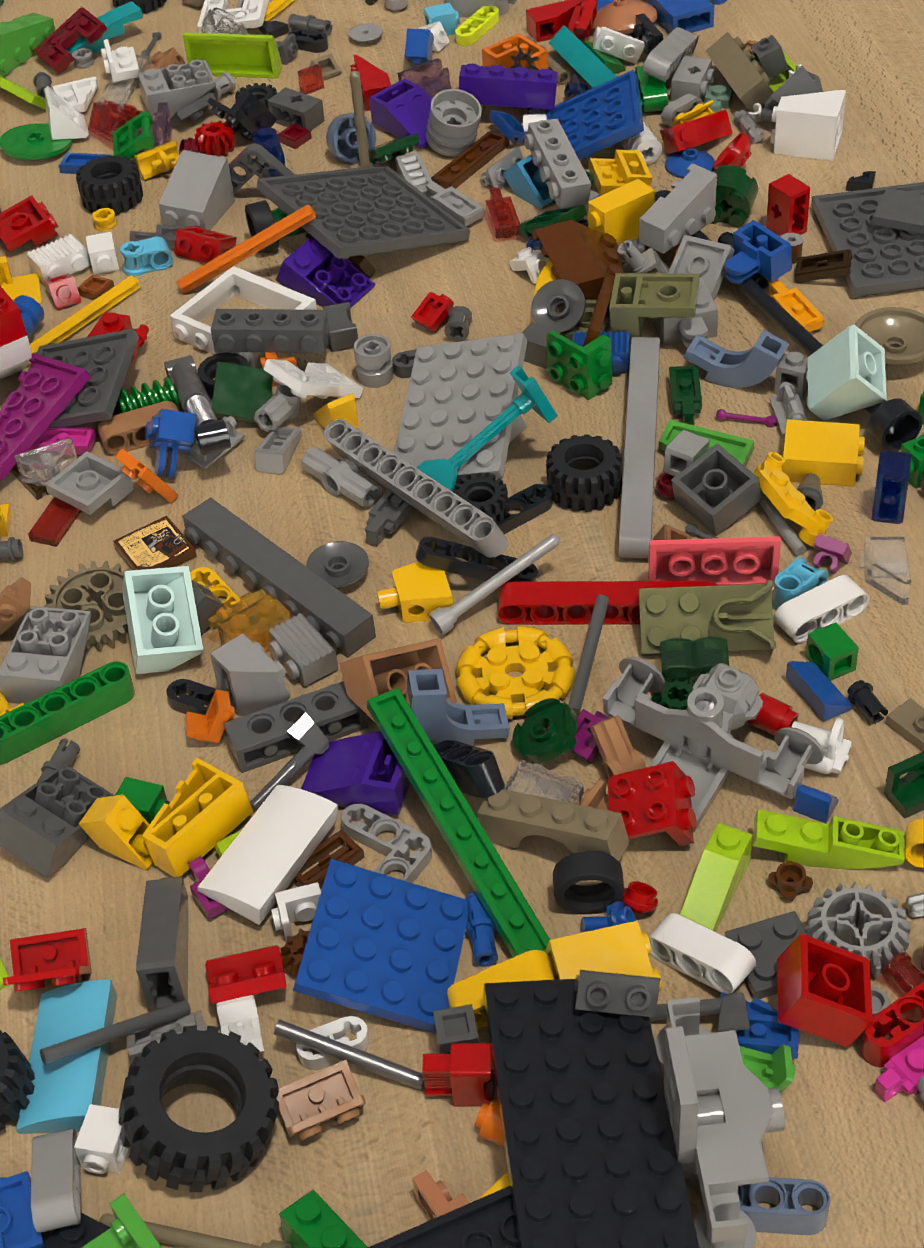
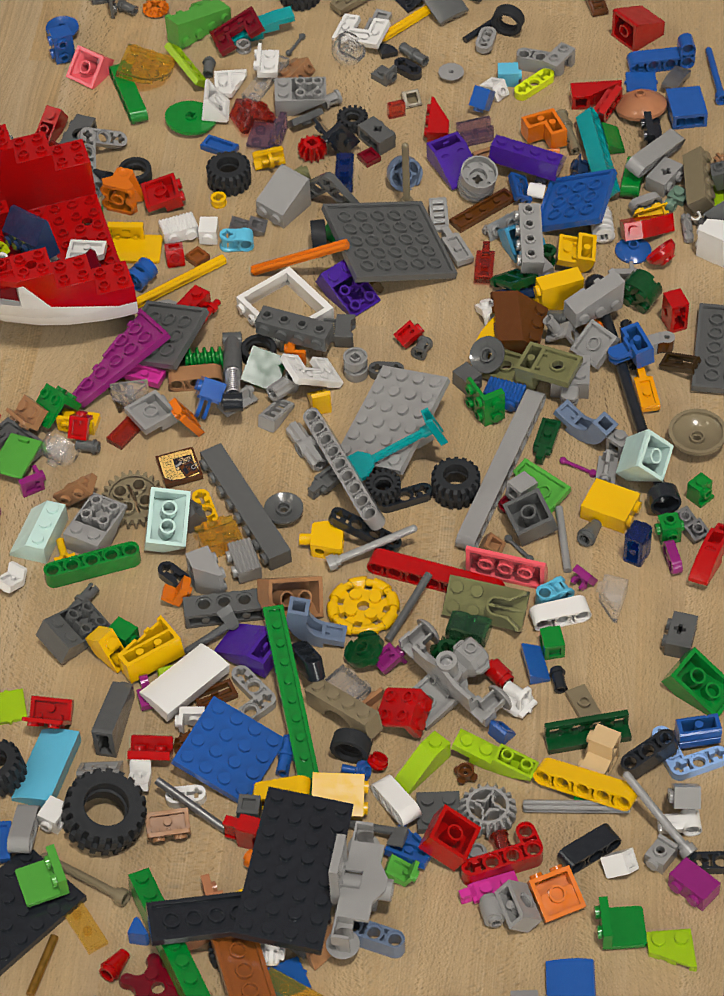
camera: 15 degrees right, 5 degrees up
(114, 1032) = (76, 760): dark grey bar -> none
(126, 139) = (250, 136): green plate -> none
(188, 145) = (291, 153): dark red plate -> none
(201, 243) = (277, 238): red bracket -> none
(235, 53) = (347, 76): lime slope -> none
(392, 148) = (430, 187): dark green tile -> none
(523, 56) = (550, 138): black gear -> none
(599, 309) = (508, 368): reddish brown tile -> none
(615, 748) = (398, 671): medium nougat piece -> none
(617, 44) = (624, 131): white bracket -> none
(617, 993) = (333, 810): dark grey hinge -> none
(789, 500) = (570, 534): yellow plate -> none

